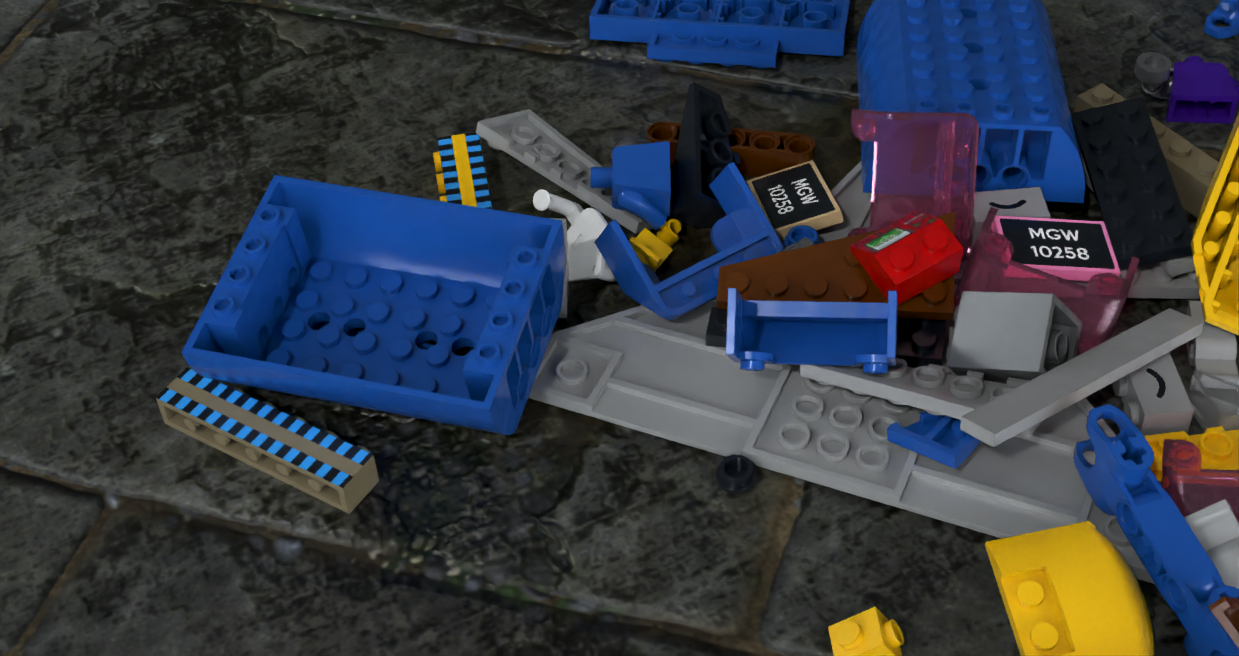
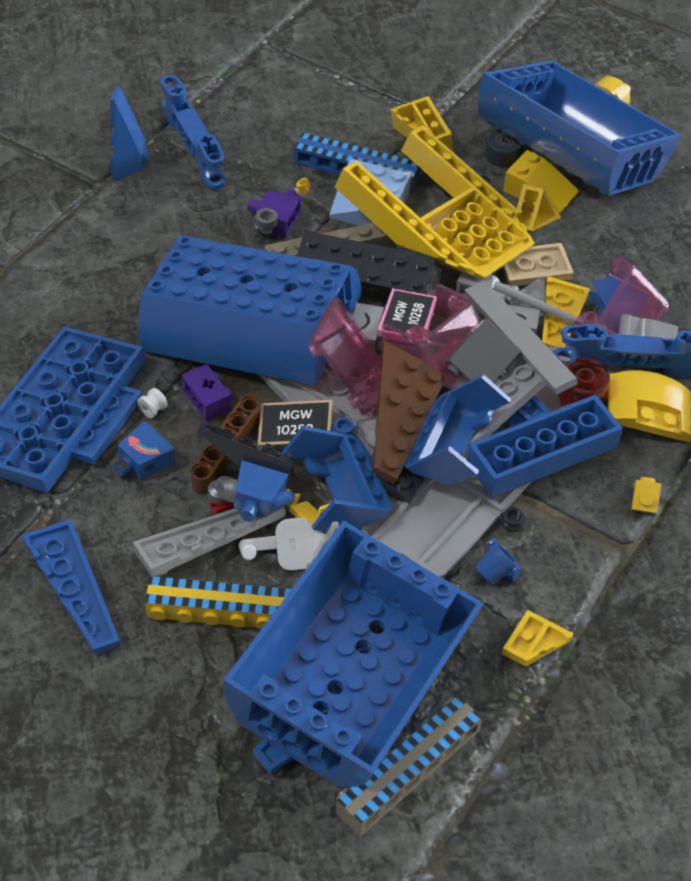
camera: 80 degrees left, 5 degrees up
(500, 69) = (70, 575): none -> blue wing
(514, 539) = (535, 639): none -> yellow wing
(635, 462) = (498, 563): none -> blue piece
(671, 80) = (144, 453): none -> blue torso
(765, 73) = (152, 403): none -> white wheel
(811, 109) = (207, 392): none -> dark purple brick
(878, 462) = (544, 445): none -> blue brick
(909, 255) = (416, 371): red slope -> none
(1038, 486) = (590, 381): none -> clear red brick
(1202, 398) = (536, 303): none -> light grey bar

